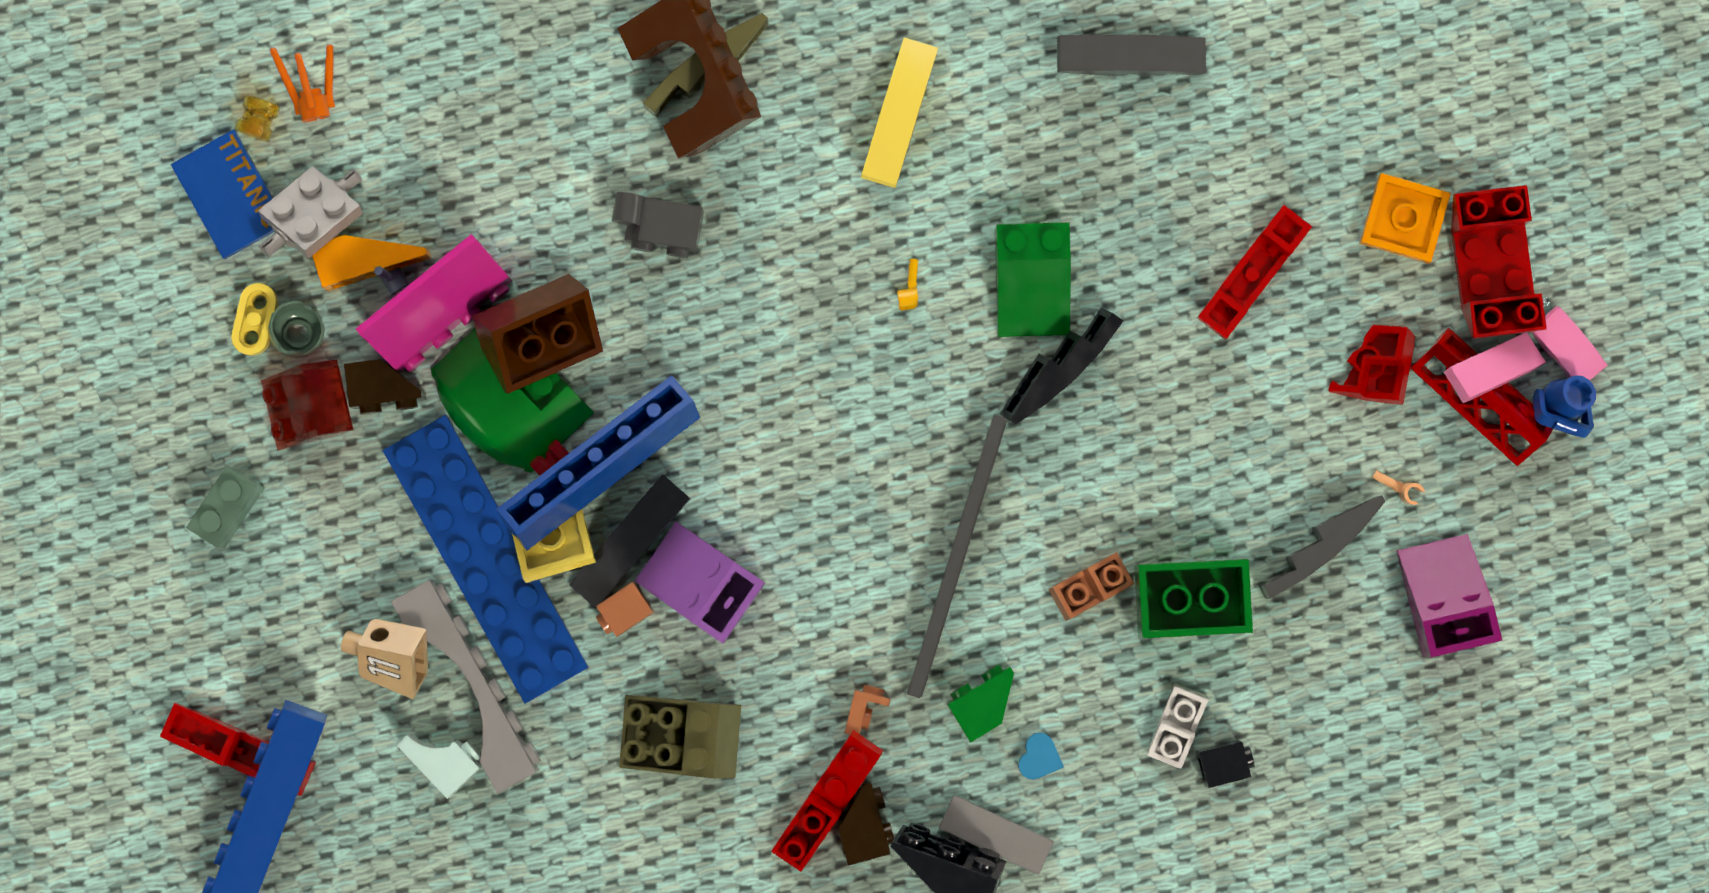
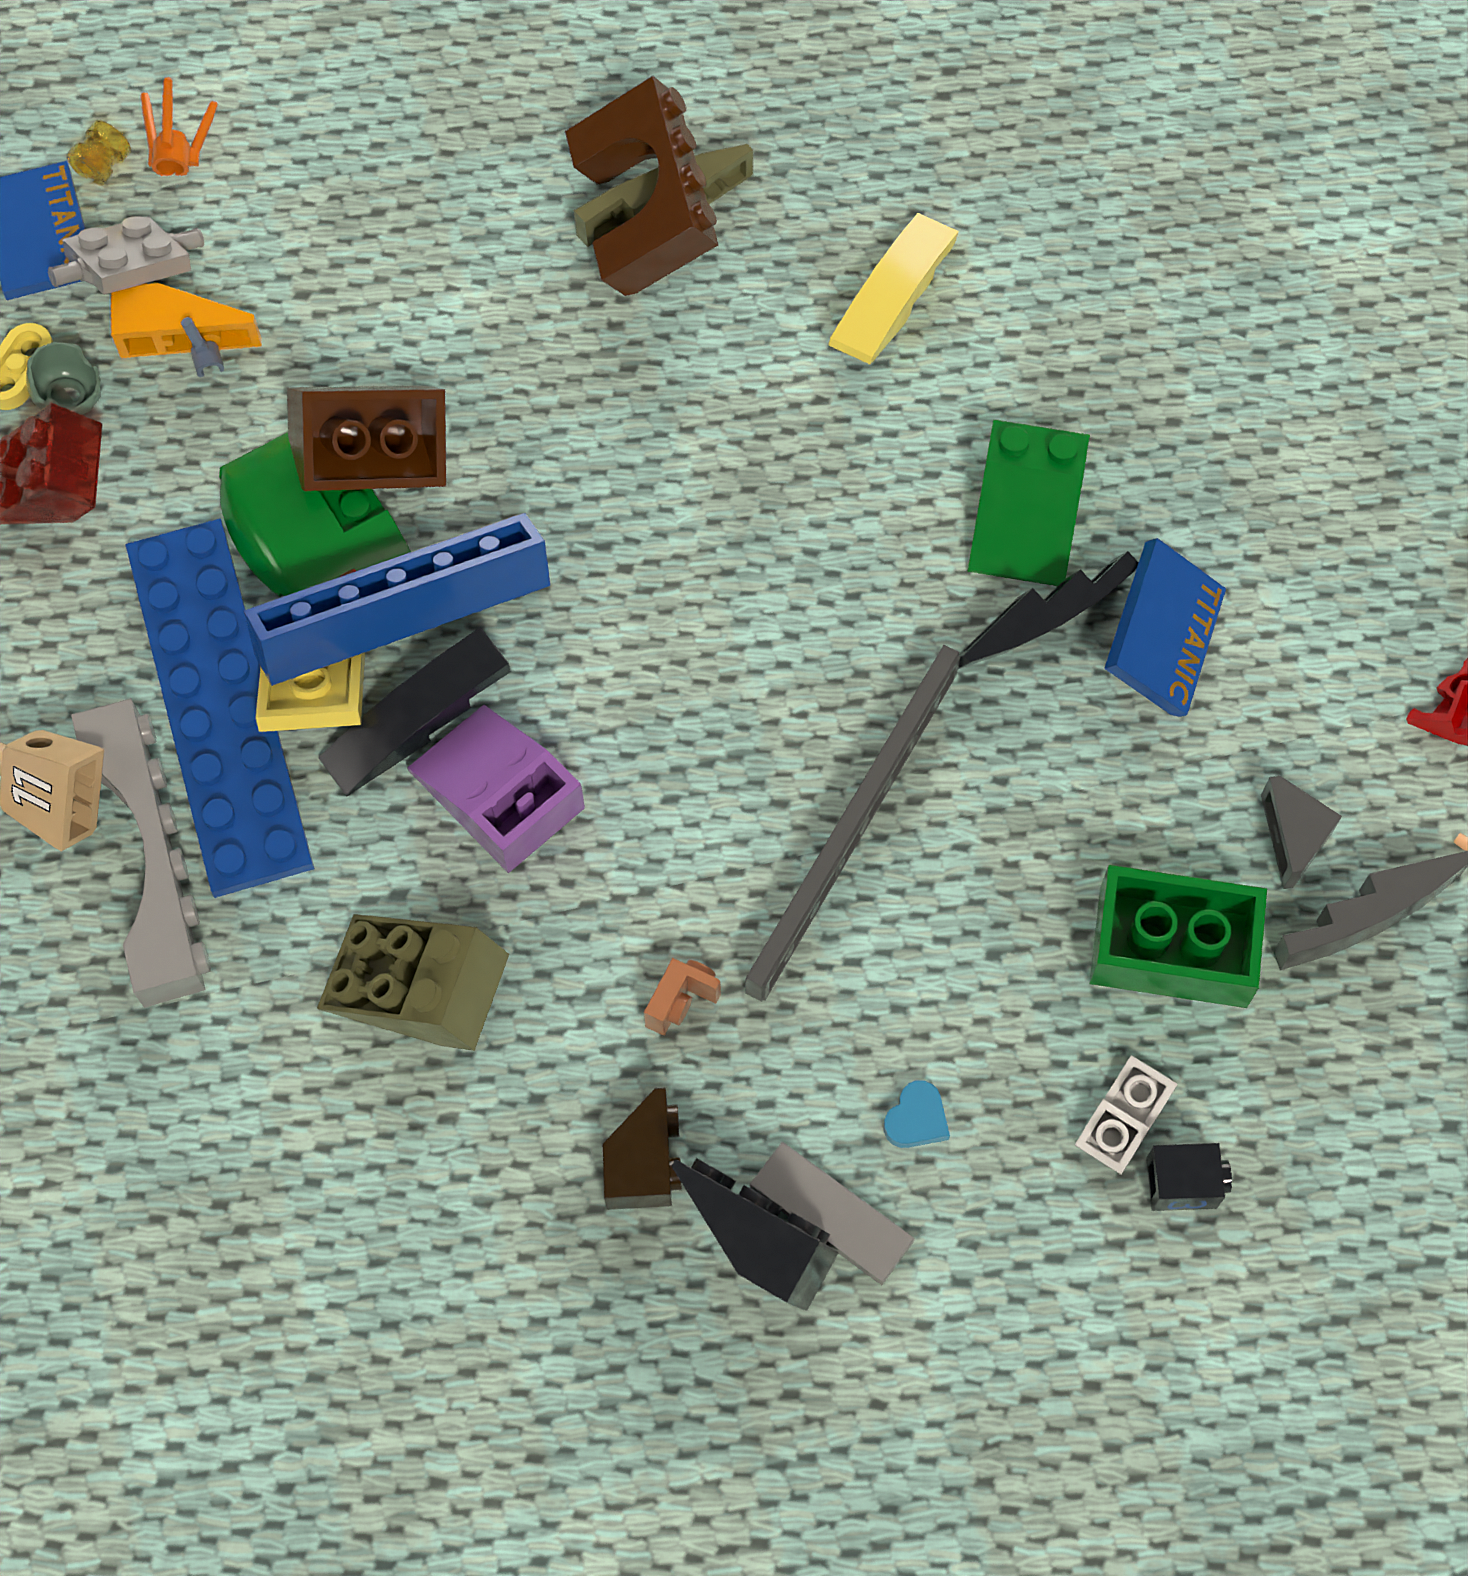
camera: 15 degrees right, 20 degrees down
(376, 385) = (137, 460): dark brown slope -> none
(435, 305) = (231, 366): dark pink slope -> none
(444, 766) = (78, 947): light aqua arch -> none
(623, 610) = (382, 797): nougat brick -> none
(658, 224) = (558, 350): dark grey hinge -> none
(827, 800) = (597, 1107): red slope -> none
(909, 297) = (863, 495): yellow hand -> none
(984, 705) = (848, 1023): green slope -> none
(1091, 586) = (1034, 903): nougat slope -> none
(1131, 55) = (1200, 275): dark grey slope -> none
(1148, 362) = (1165, 628): none -> blue tile
(1254, 272) = (1328, 553): red slope -> none
(1263, 497) = (1296, 827): none -> dark grey slope

